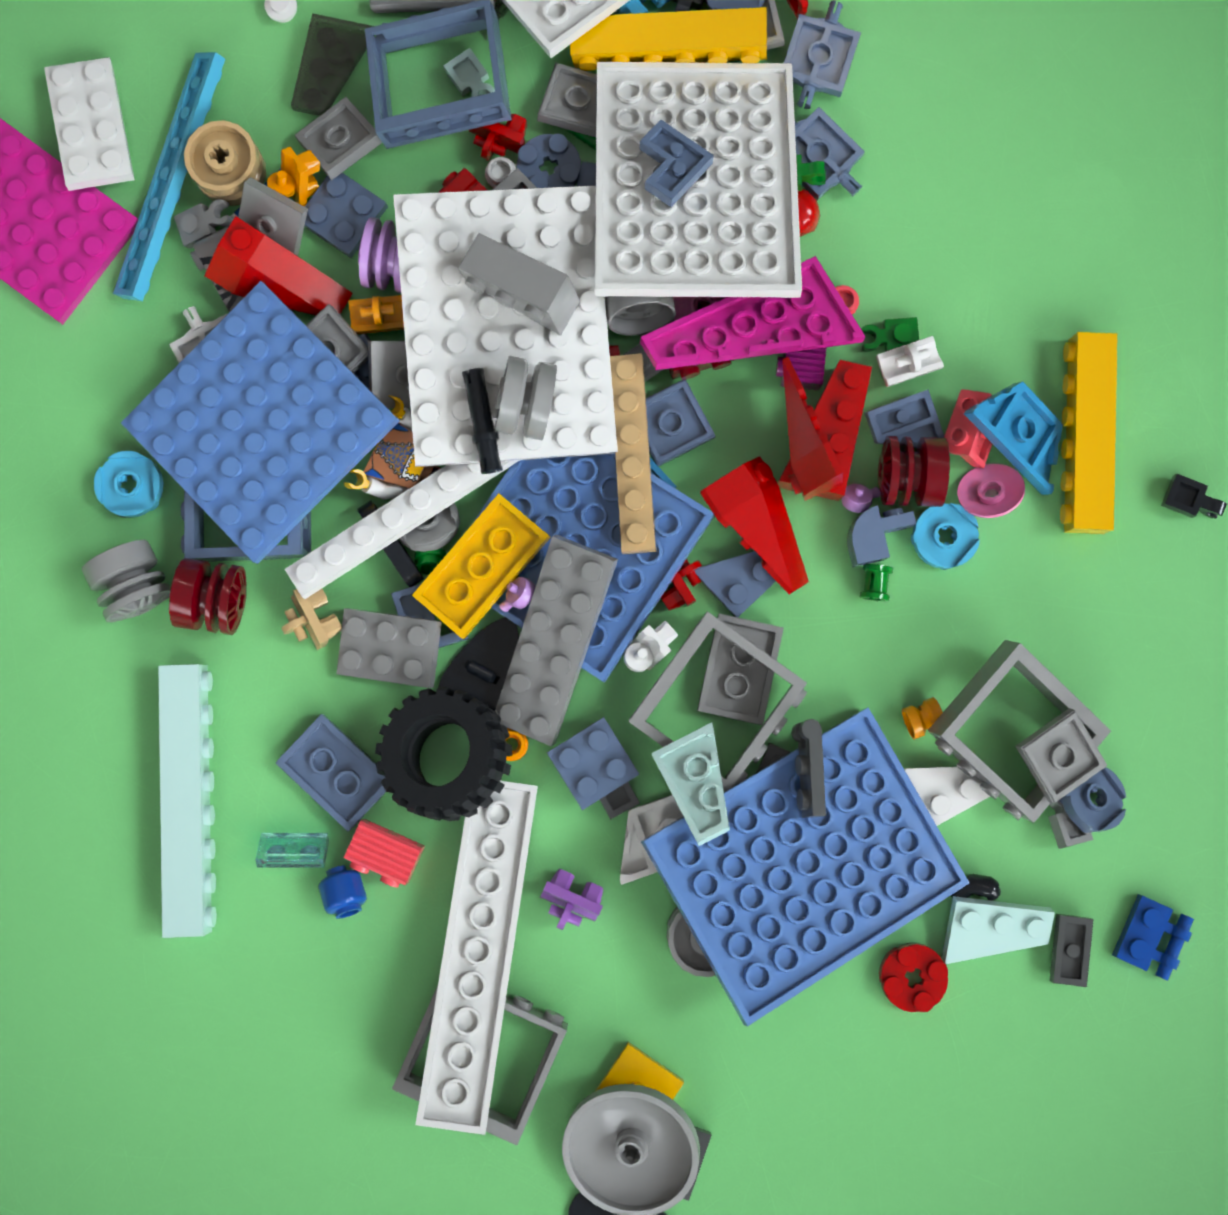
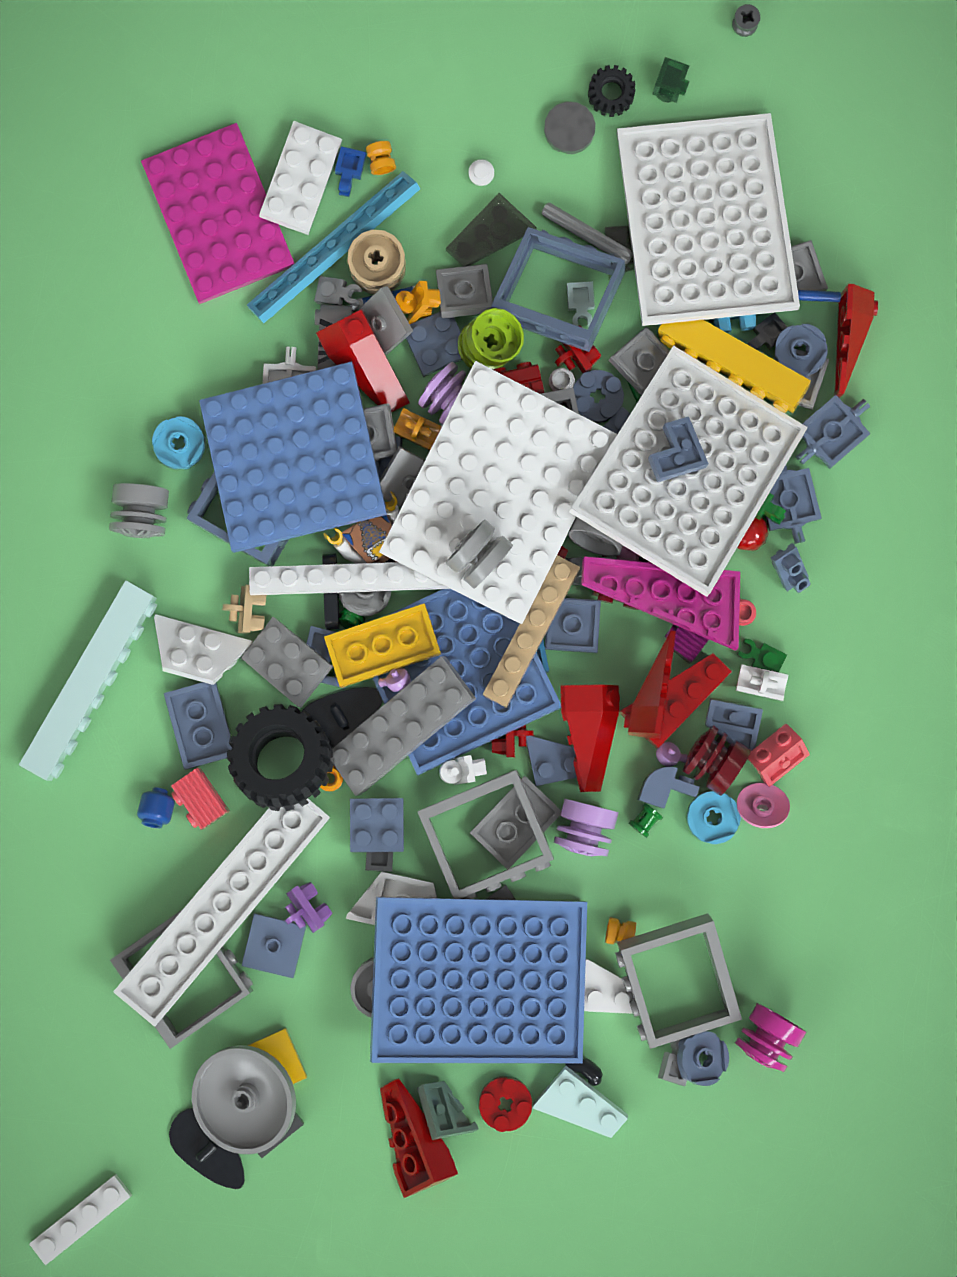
camera: 30 degrees right, 0 degrees up
(134, 82) = (349, 166): none -> blue plate
(158, 48) = (380, 157): none -> light orange wheel
(207, 596) = (183, 550): dark red wheel -> none
(284, 694) = (196, 650): none -> white wing
(292, 850) = (139, 759): clear light blue plate -> none
(397, 163) = (502, 336): none -> lime wheel
(481, 416) = (442, 548): black pin -> none
(520, 283) = (522, 473): light grey wedge -> none
(561, 962) = (273, 946): none -> sand blue plate
(695, 781) = (436, 880): light aqua wing -> none
(810, 768) = (520, 917): dark grey plate -> none
(819, 628) = (585, 828): none -> lavender wheel
(853, 1085) = (418, 1158): none -> red wedge
(854, 1027) = (443, 1111): none -> sand green wing
(866, 223) = (791, 569): none -> sand blue hips
(1021, 431) = (809, 777): dark azure wing -> none
(1061, 755) = (695, 1014): light grey plate -> none
(1071, 950) = (624, 1151): dark grey plate -> none
(1089, 433) = (856, 808): yellow brick -> none
(1143, 933) = (681, 1171): blue plate -> none
(1153, 732) = (770, 1038): none -> dark pink wheel
(1189, 497) = (897, 893): black plate -> none

